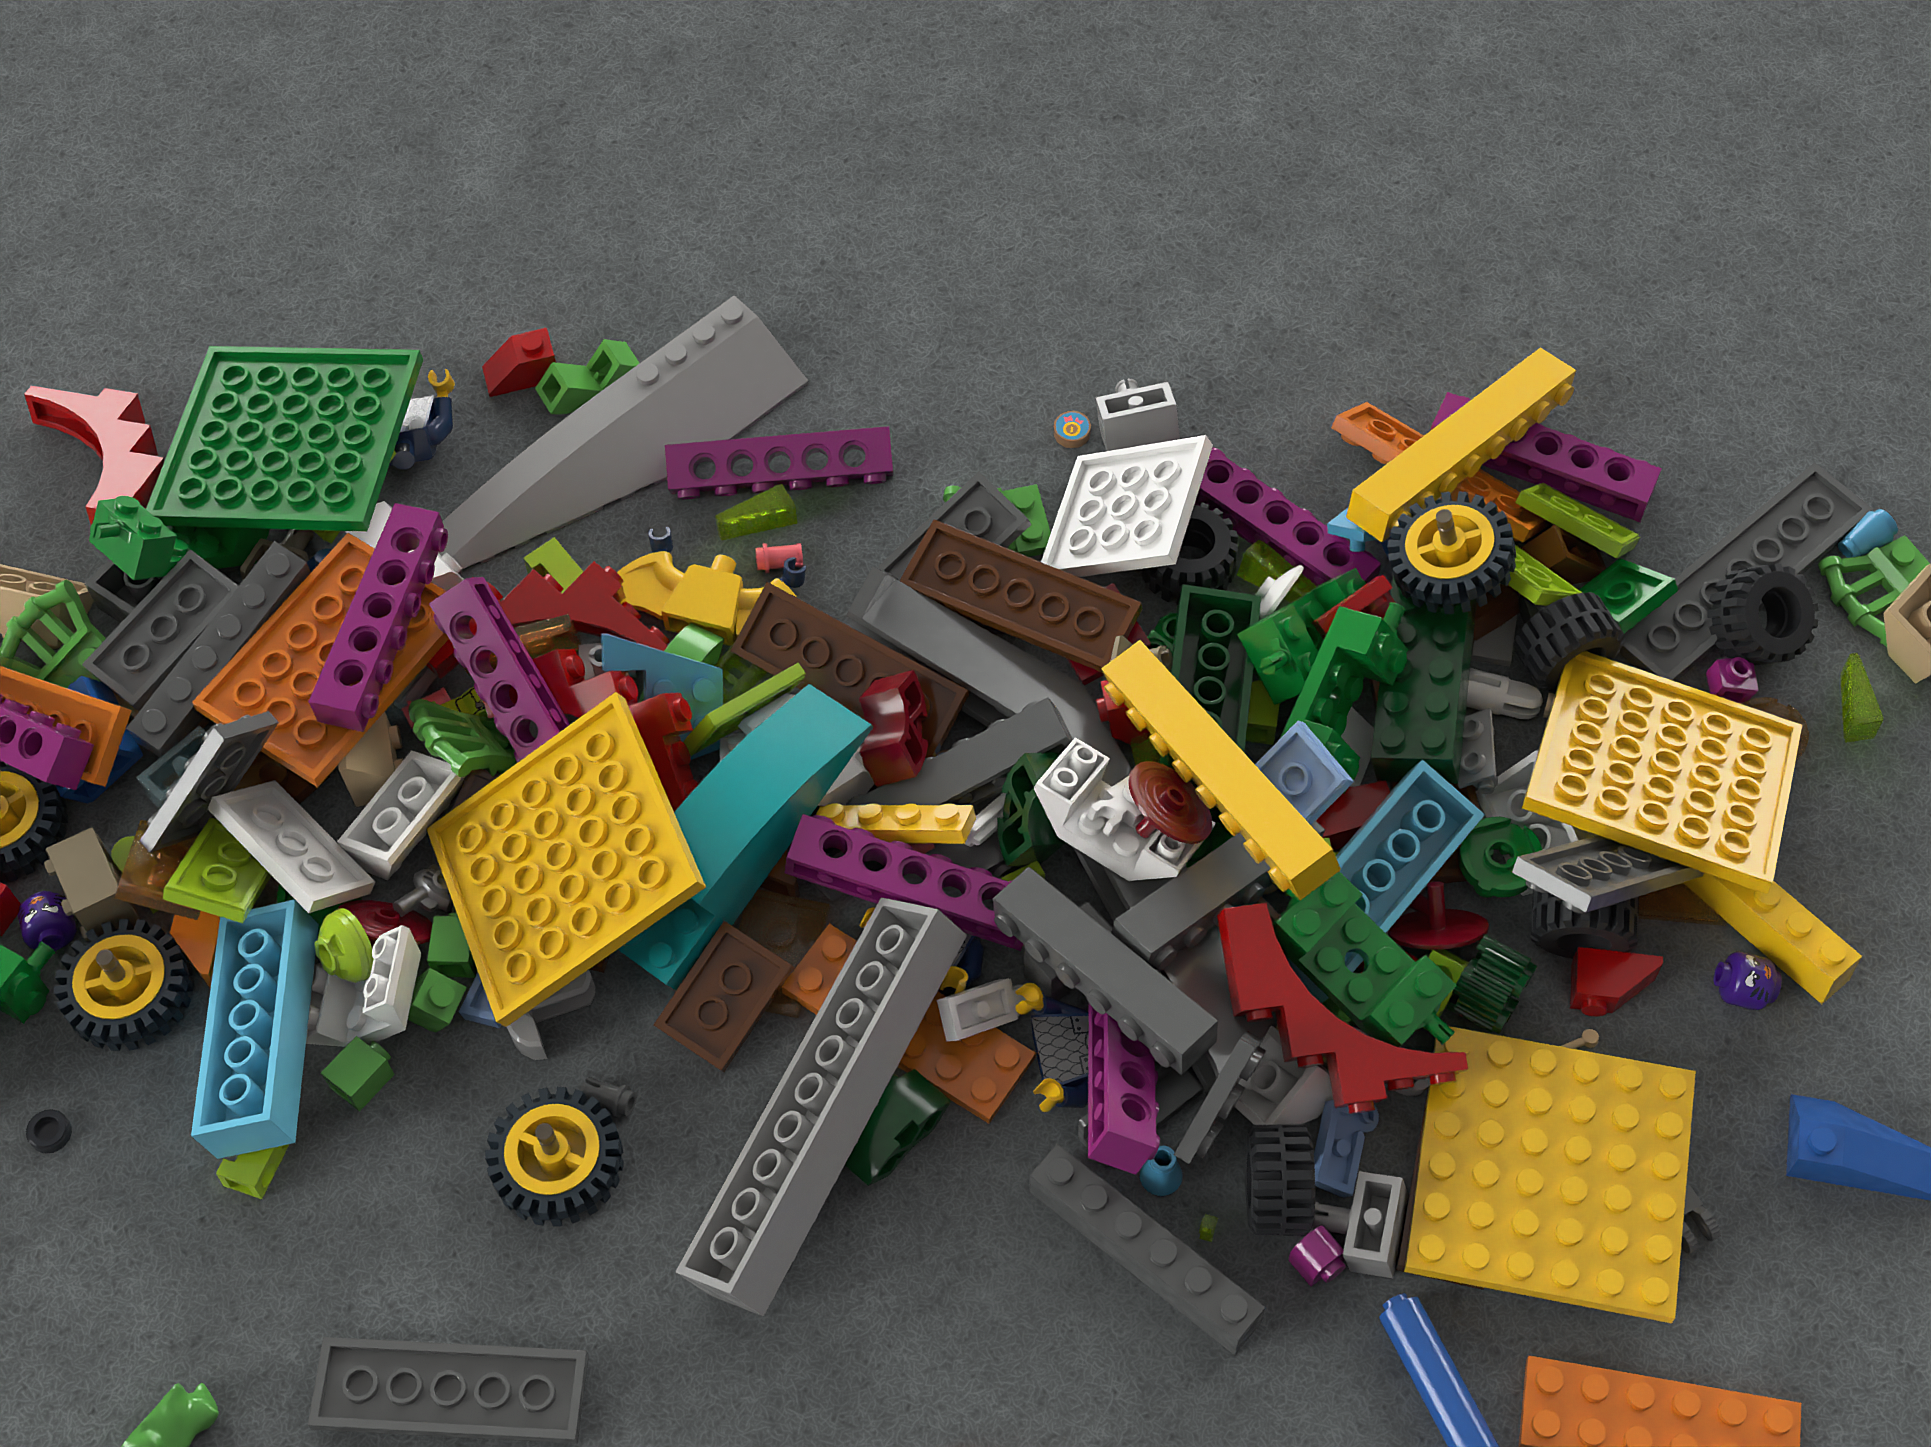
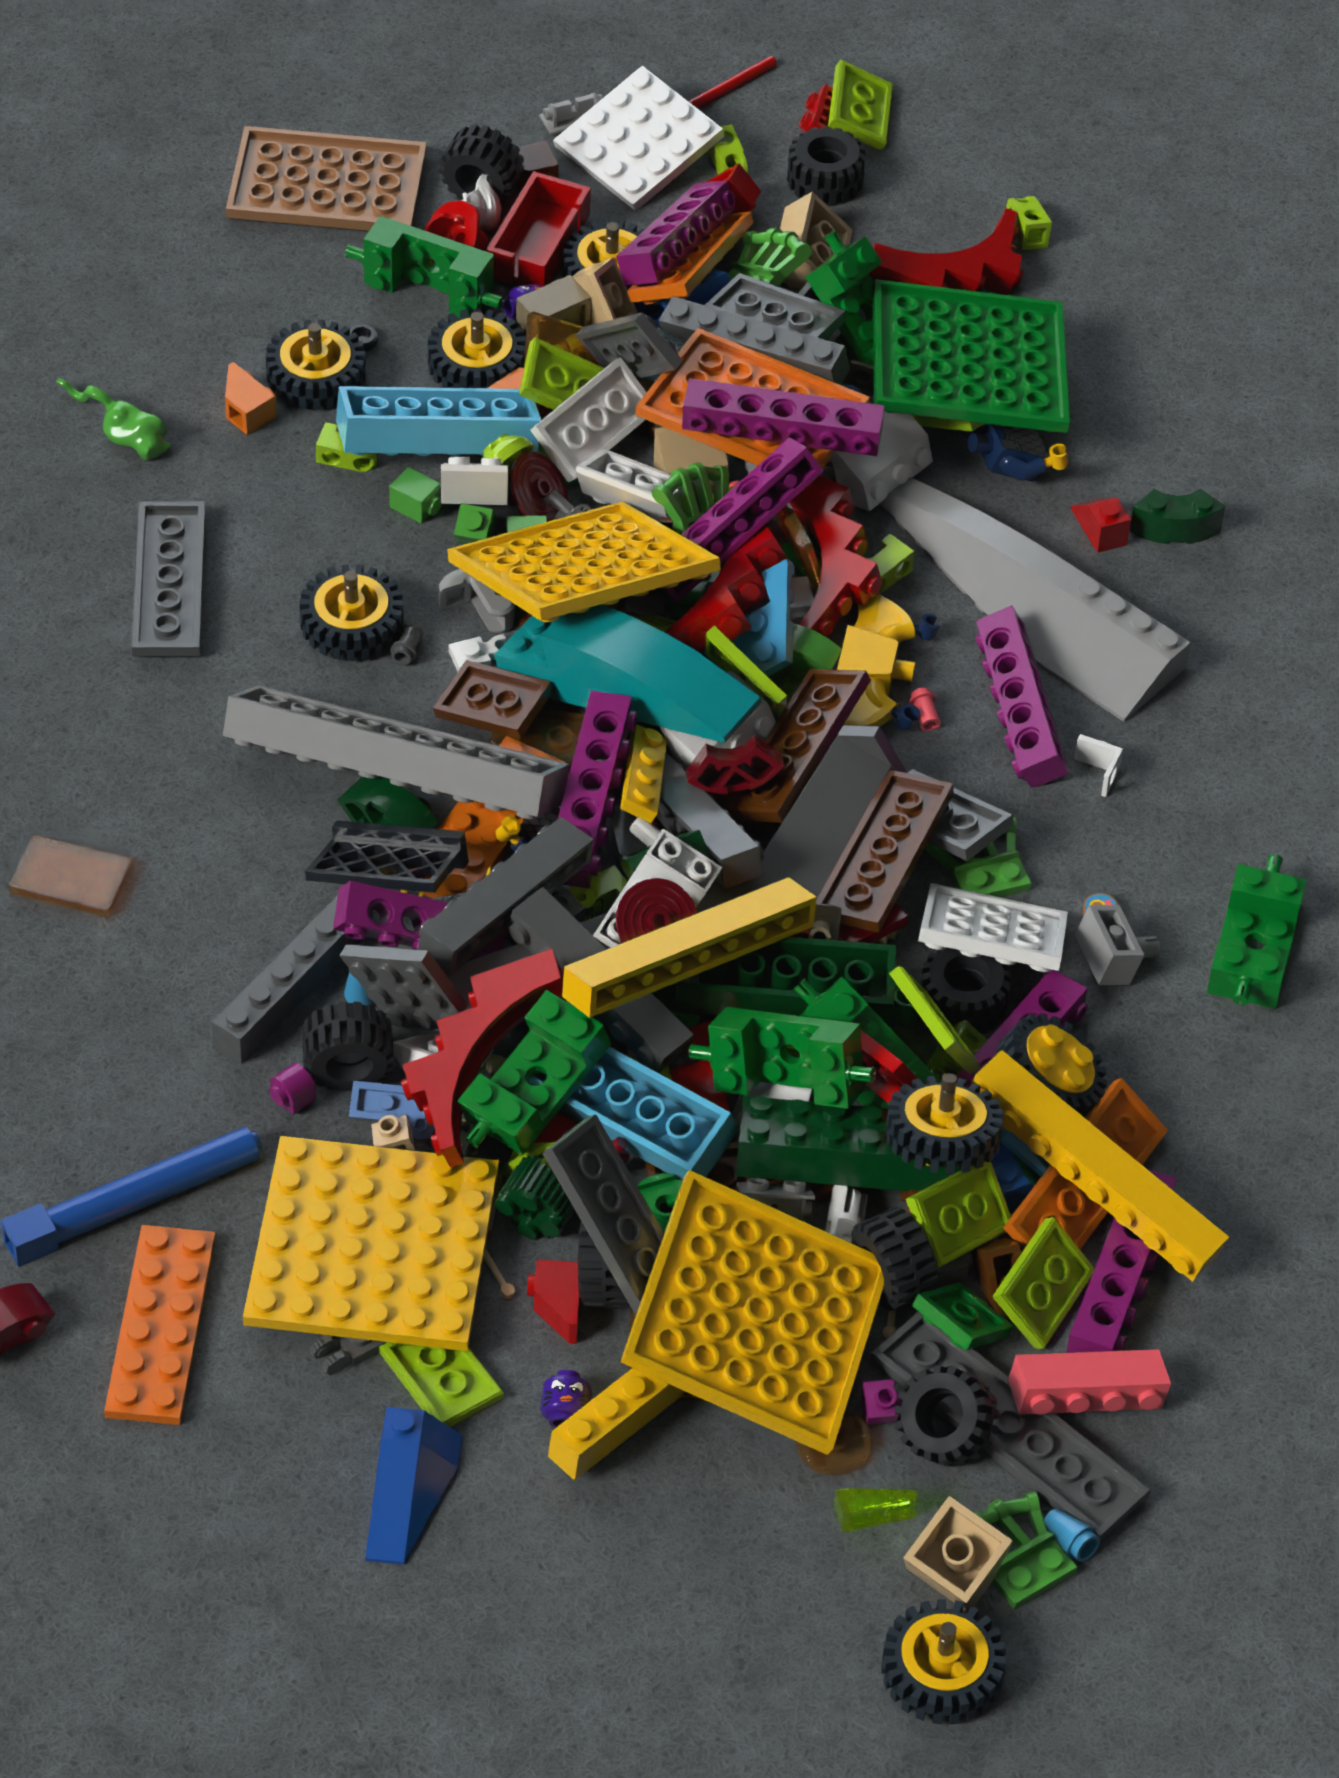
camera: 80 degrees right, 10 degrees down
(44, 372) = (1032, 222): none -> lime leg
(60, 817) = (607, 291): none -> tan slope
(99, 1185) = (314, 363): none -> wheel
(140, 1280) = (247, 400): none -> orange slope
(537, 292) = (1177, 518): none -> dark green brick
(570, 386) = (1086, 554): bright green brick -> none
(631, 1021) = (475, 650): none -> white plate
(758, 514) = (966, 689): clear neon green slope -> none
(874, 391) = (1100, 755): none -> white bracket
(957, 1118) = (400, 845): none -> black fence
(979, 1009) = (483, 842): white hinge -> none
(1086, 295) = (1262, 909): none -> green brick
(1274, 563) = (935, 1019): none -> lime tile
(1274, 591) = (915, 1035): white dish -> none
(1304, 772) = (695, 1017): light blue tile -> none
(1319, 472) = (1057, 1059): none -> wheel
(1370, 1225) = (318, 1114): light grey brick -> none
(1391, 1142) = (393, 1133): none -> tan plate
(1701, 495) = (1089, 1381): none -> coral brick
(1728, 1108) = (442, 1380): none -> lime tile

